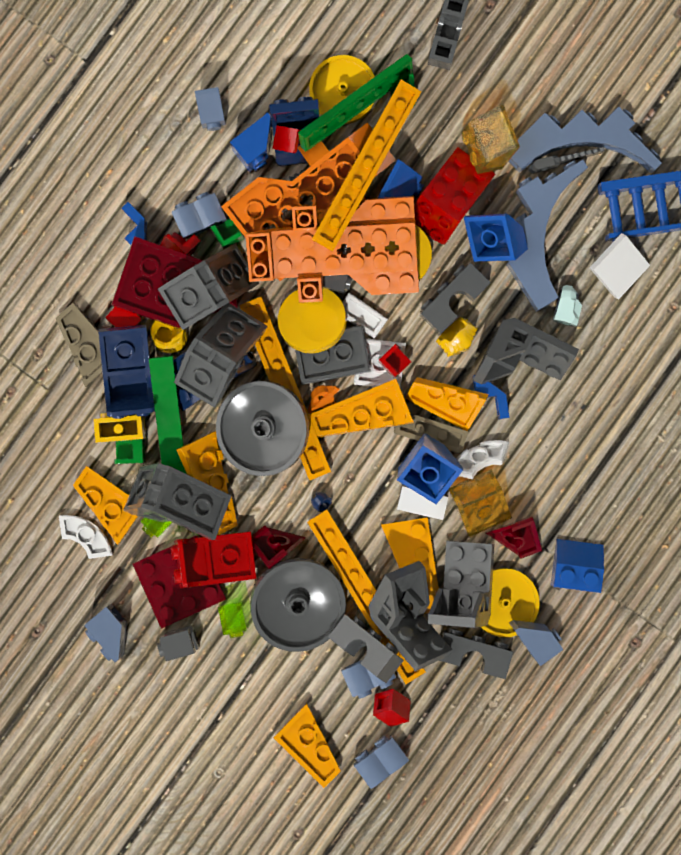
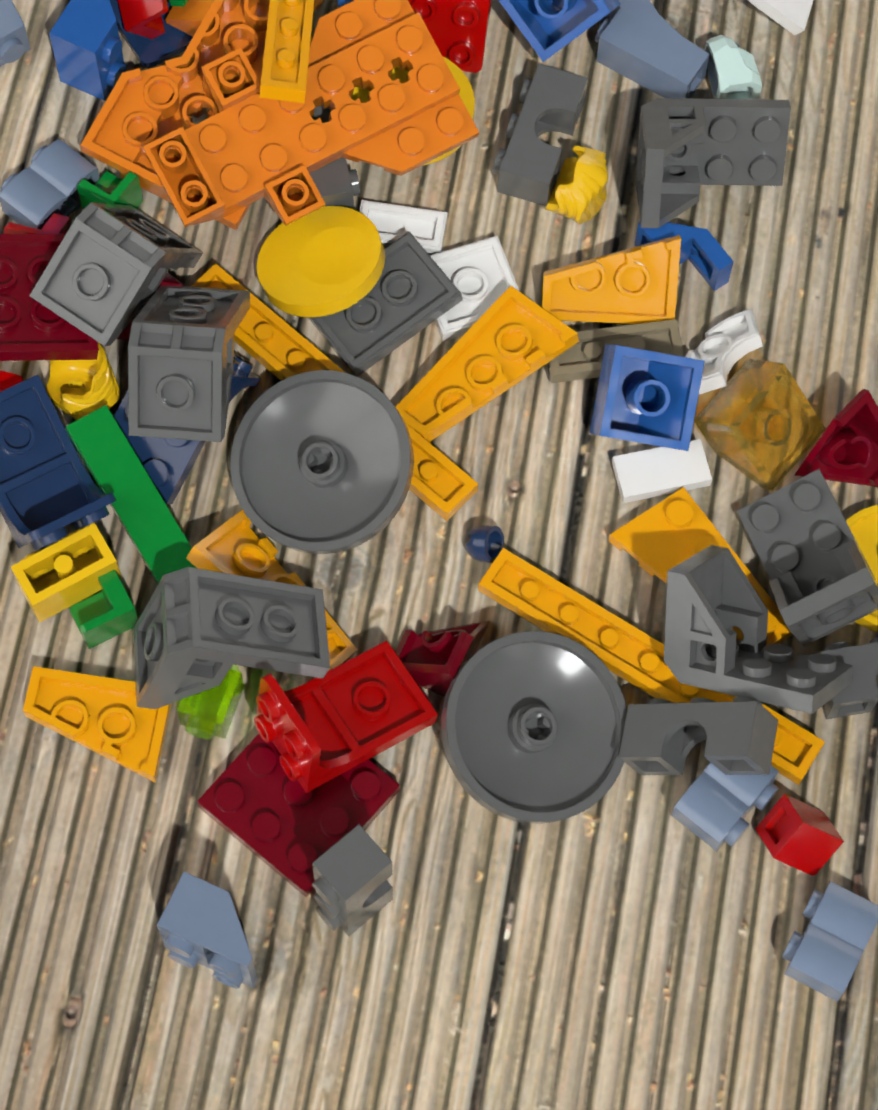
camera: 25 degrees left, 20 degrees down
(86, 534) = (86, 792): white tile -> none
(233, 619) = (430, 811): clear neon green brick -> none
(308, 746) = (685, 979): light orange wing -> none
(322, 397) = (410, 374): orange piece -> none
(394, 361) = (491, 262): red panel -> none

